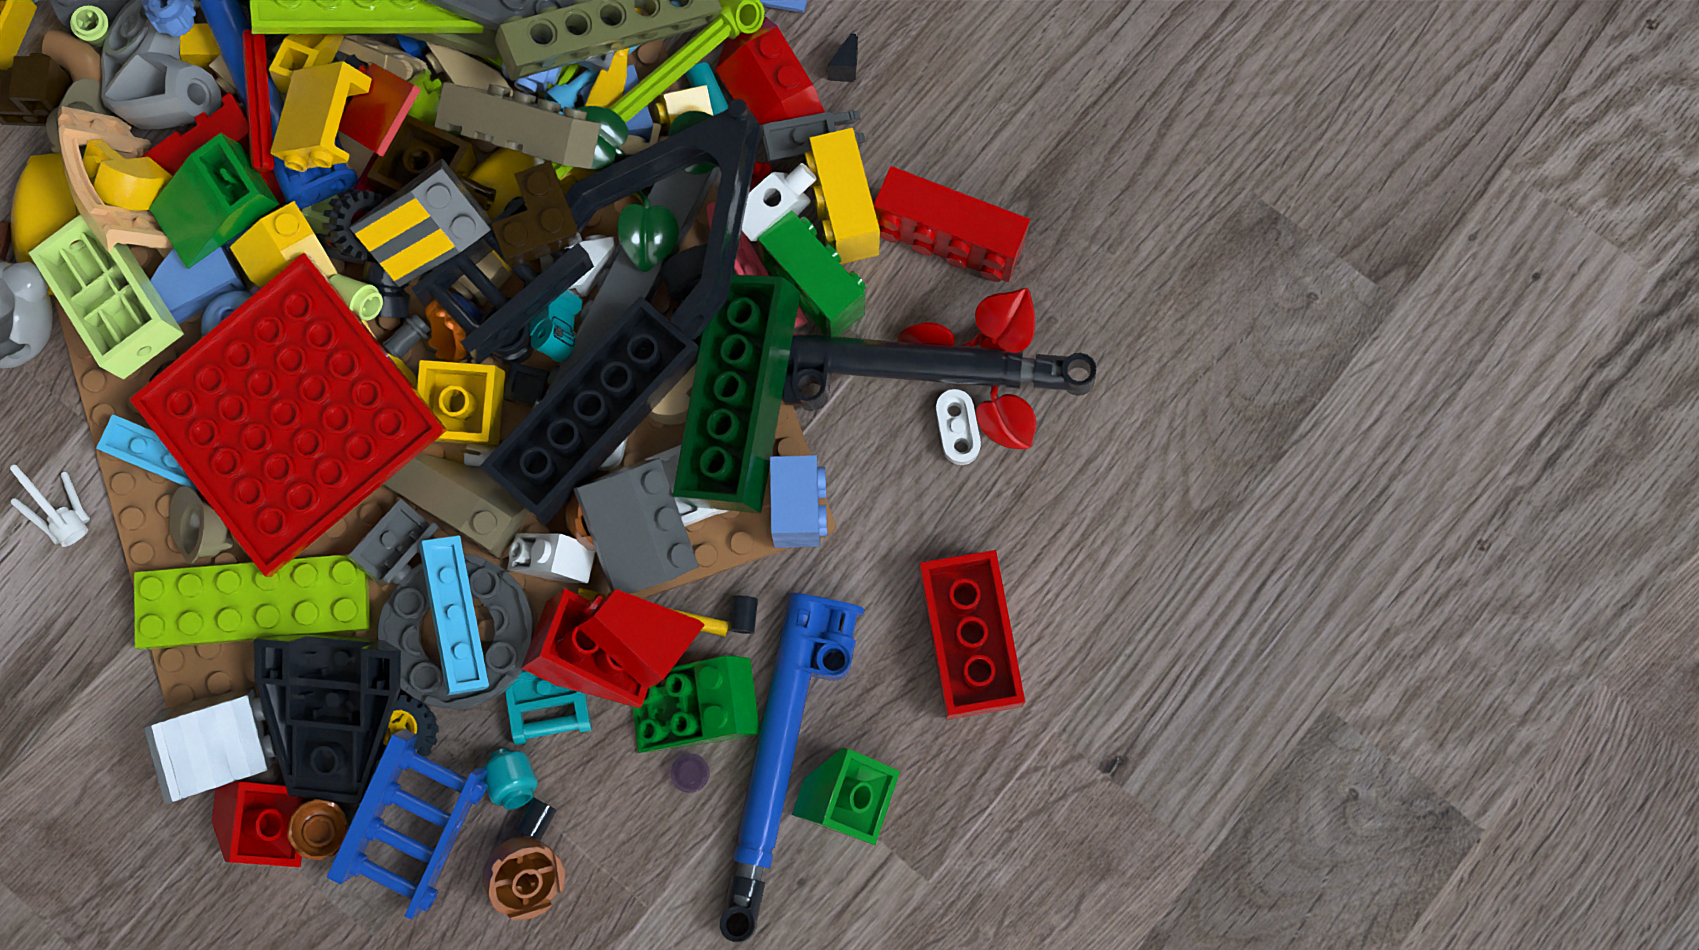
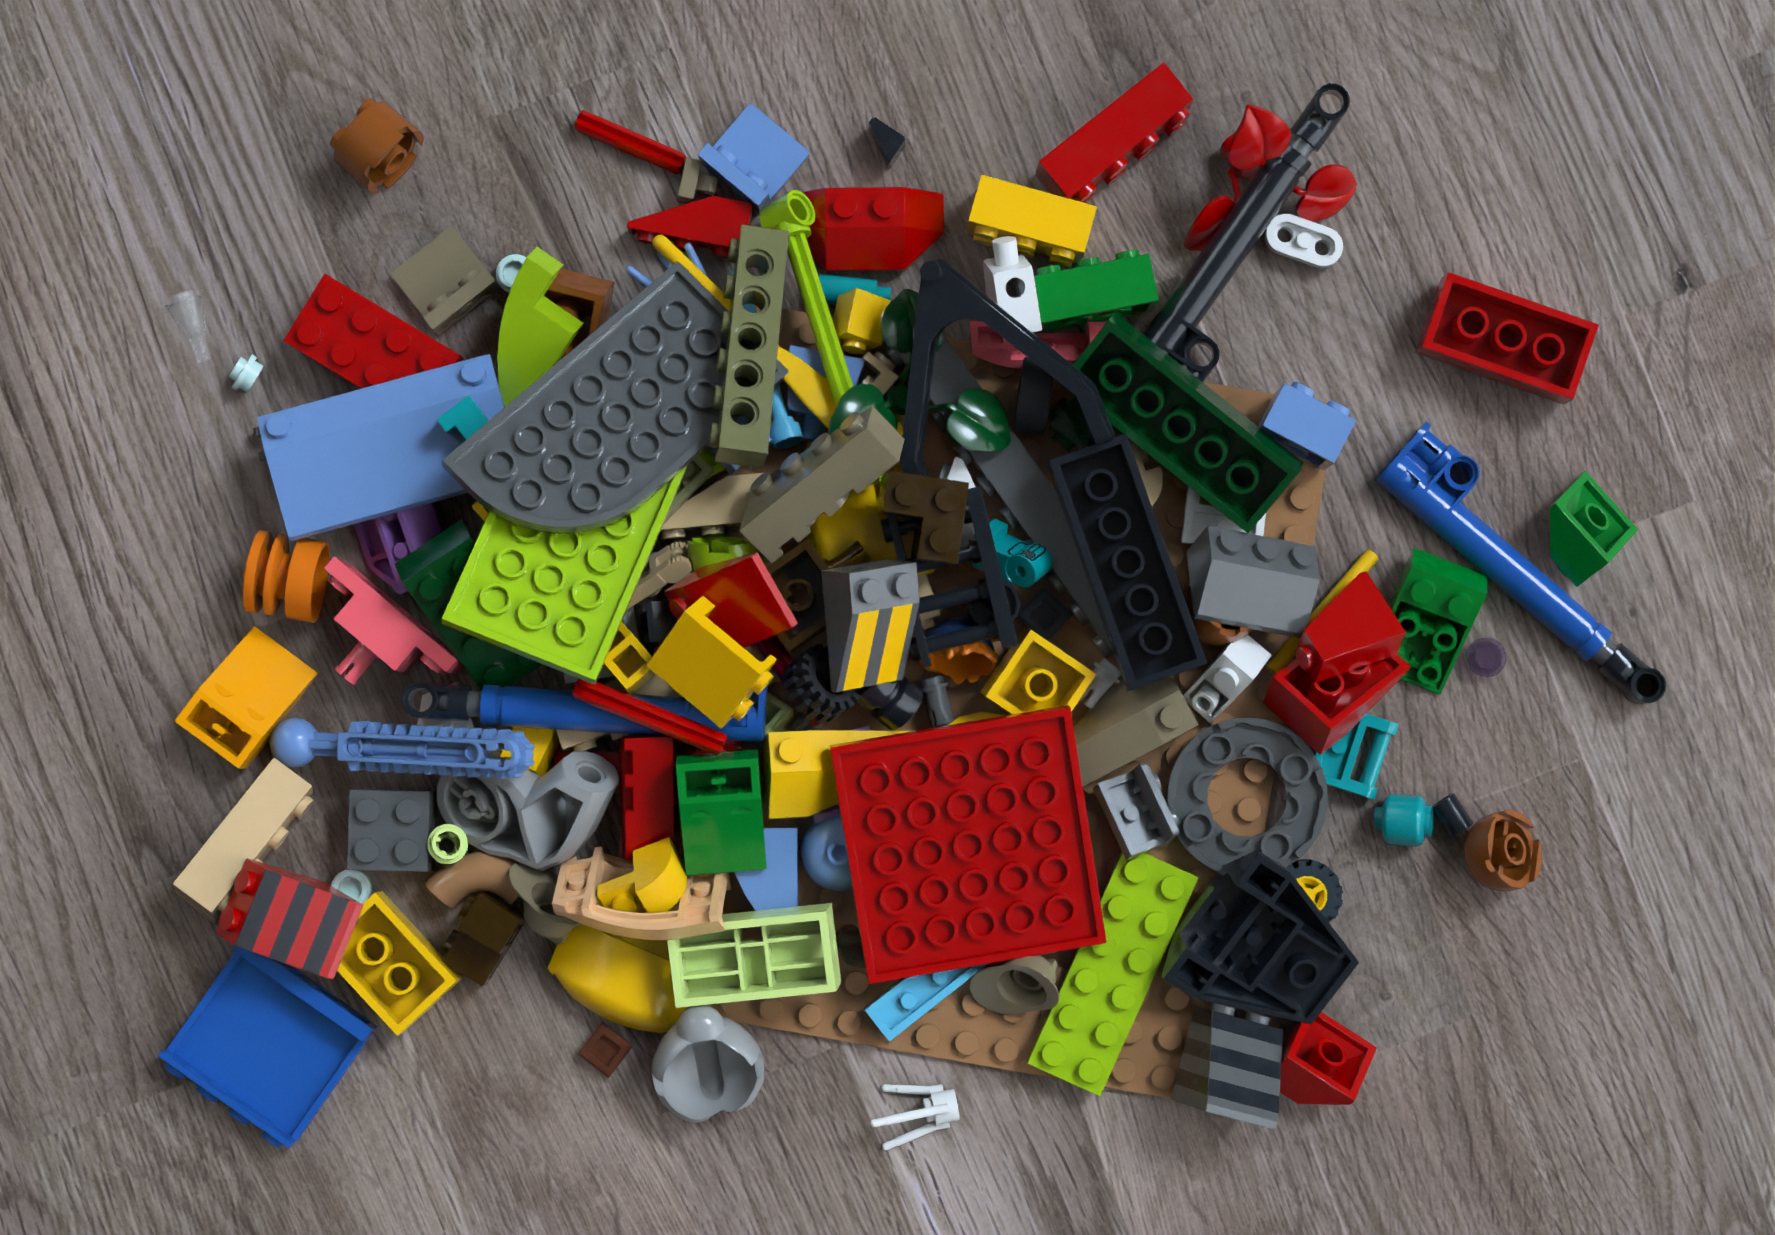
camera: 60 degrees left, 10 degrees up
(317, 829) = (1356, 1013): dark orange hair -> none
(359, 296) = (892, 720): yellowish green cone -> none
(369, 826) = (1363, 931): blue fence -> none
(453, 615) = (1239, 789): medium azure plate -> none
(743, 614) = (1369, 532): black hinge -> none
(791, 137) = (947, 217): dark grey hinge -> none

